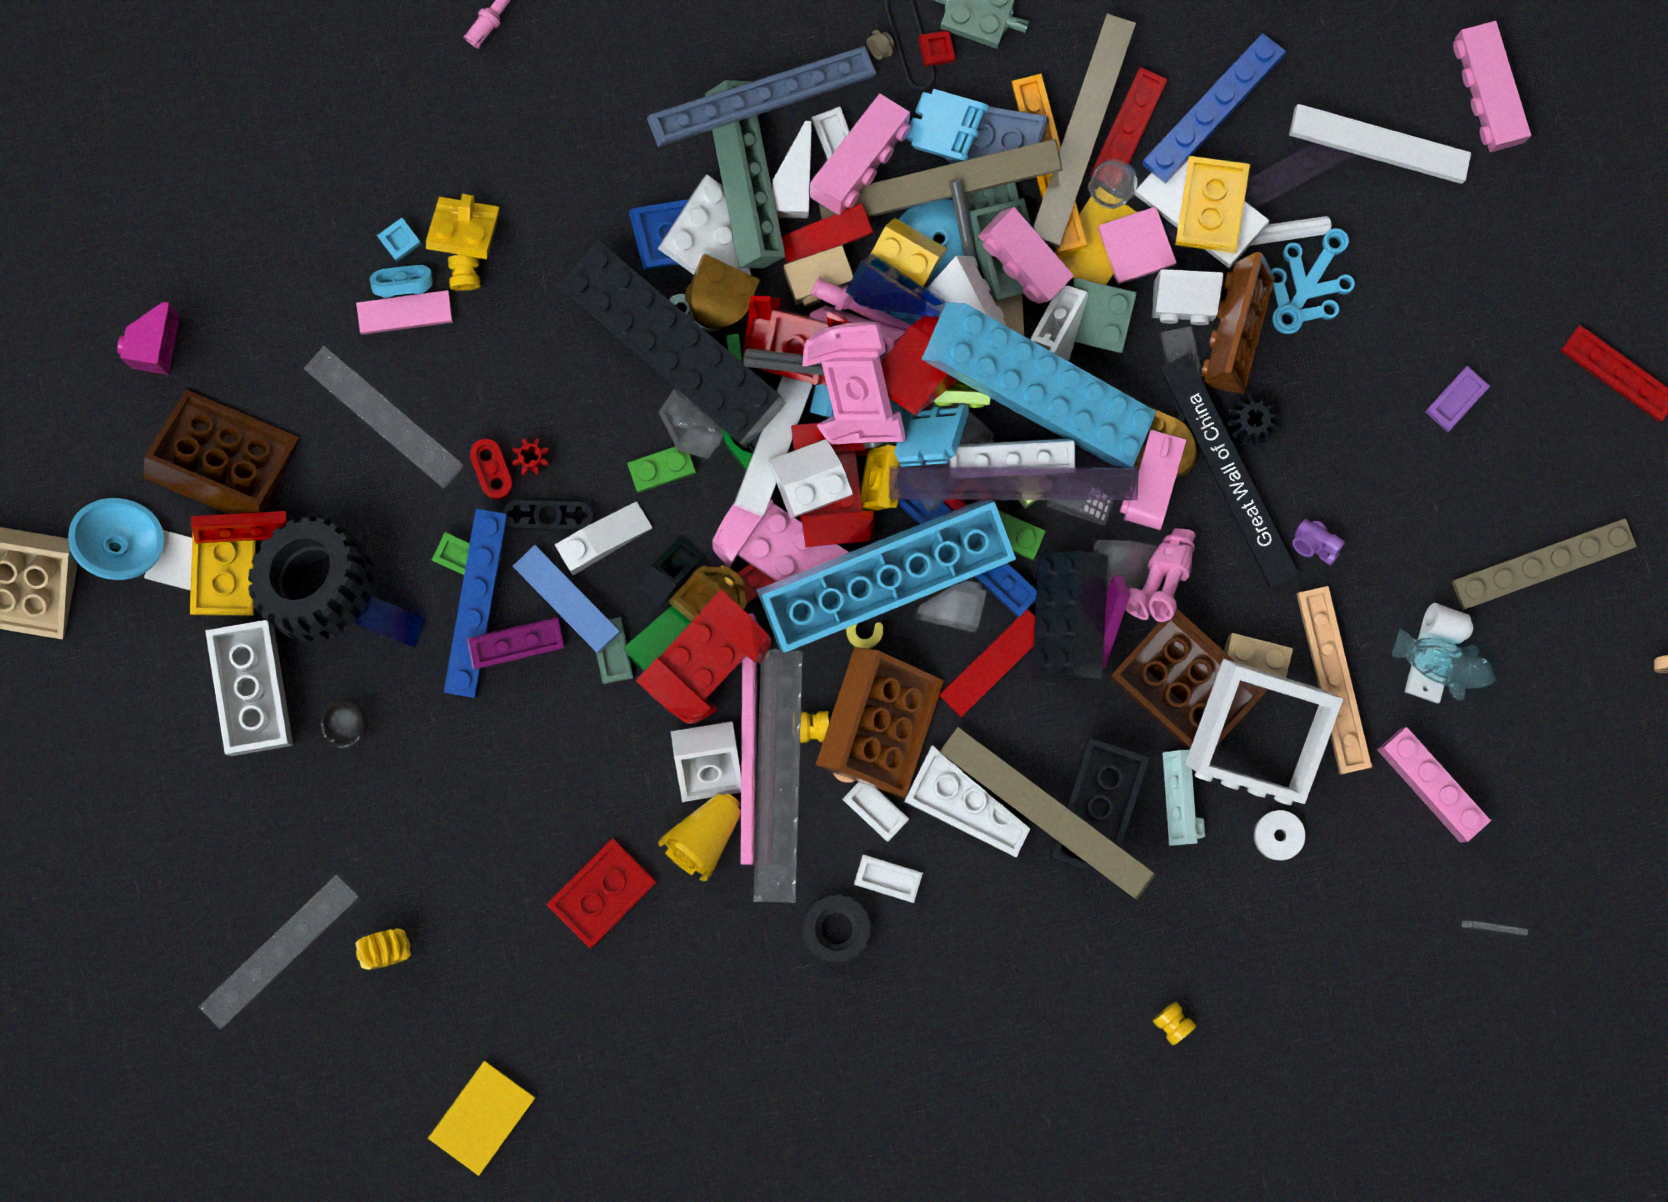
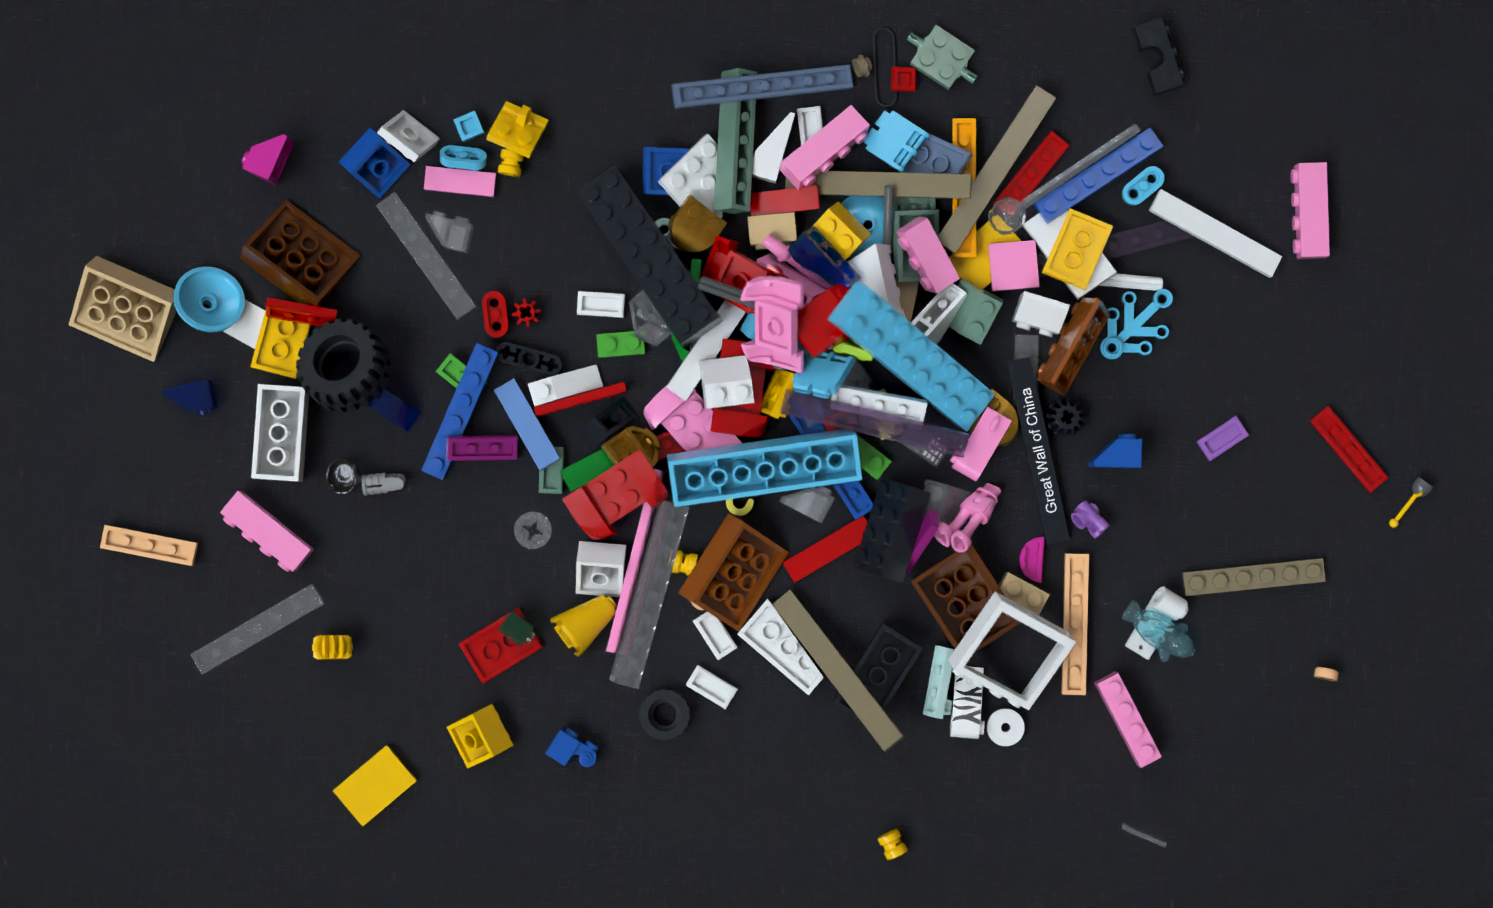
camera: 25 degrees right, 5 degrees up
(111, 877) = (149, 545): none -> light nougat plate
(125, 669) = (193, 396): none -> clear blue slope
(261, 820) = (267, 531): none -> bright pink brick
(289, 314) = (374, 163): none -> blue slope
(324, 269) = (408, 136): none -> white plate
(396, 721) = (382, 483): none -> light grey hinge
(411, 379) = (451, 233): none -> clear slope
(598, 721) = (522, 533): none -> clear gear
(603, 1017) = (480, 736): none -> yellow slope
(619, 864) = (517, 629): none -> clear green brick
(623, 424) = (600, 304): none -> white tile
(627, 550) = (580, 399): none -> red tile
(720, 1000) = (567, 744): none -> blue brick
(1189, 100) = (1080, 166): none -> clear tile
(1224, 822) = (967, 709): none -> white door
(1257, 611) = (1032, 559): none -> dark pink tile
(1272, 108) = (1142, 186): none -> medium azure plate
(1334, 448) = (1119, 453): none -> blue slope

